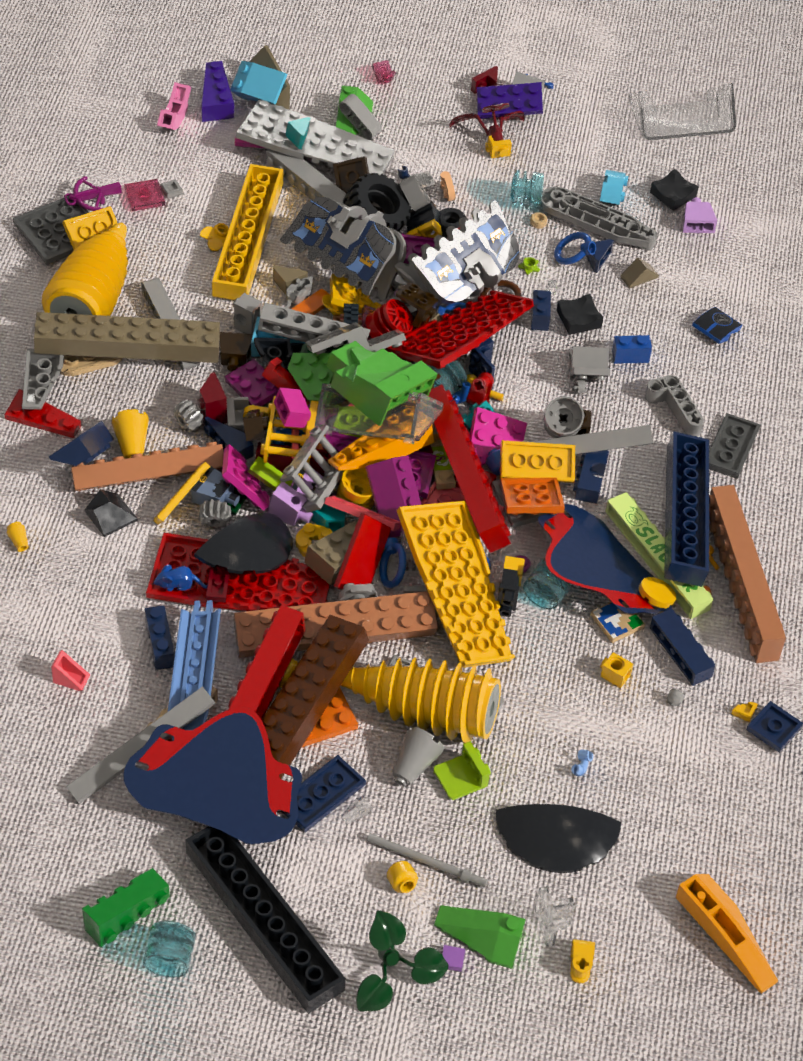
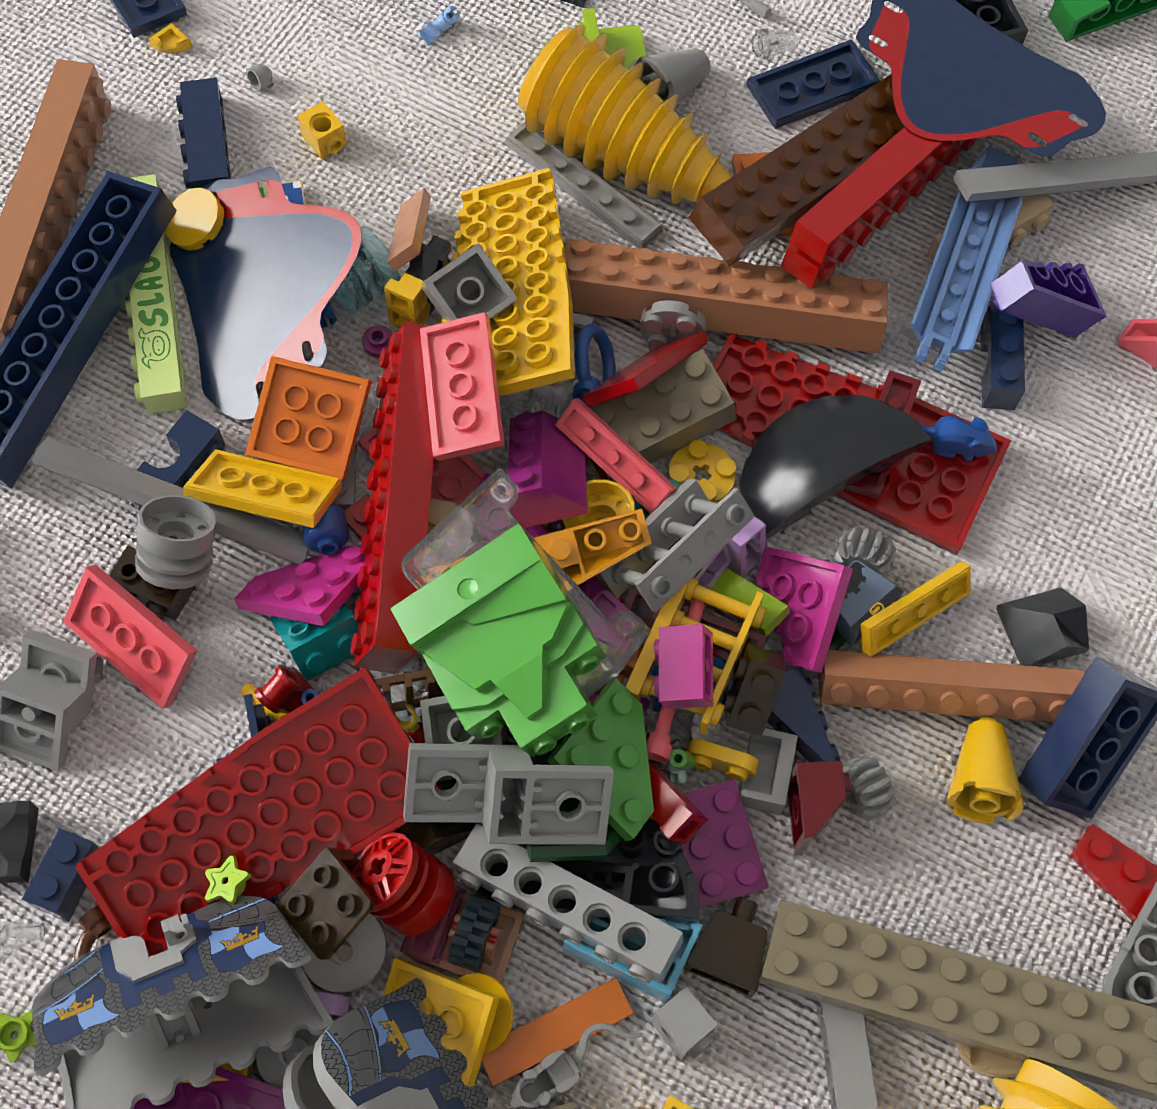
camera: 160 degrees left, 15 degrees up
(140, 656) = (1049, 296): none -> dark purple wedge
(454, 497) = (461, 387): none -> coral plate
(464, 304) = (234, 886): none -> lime plate
(476, 560) = (468, 287): none -> light grey slope
(529, 606) = (409, 229): none -> nougat tile
(543, 388) = (129, 636): none -> coral plate

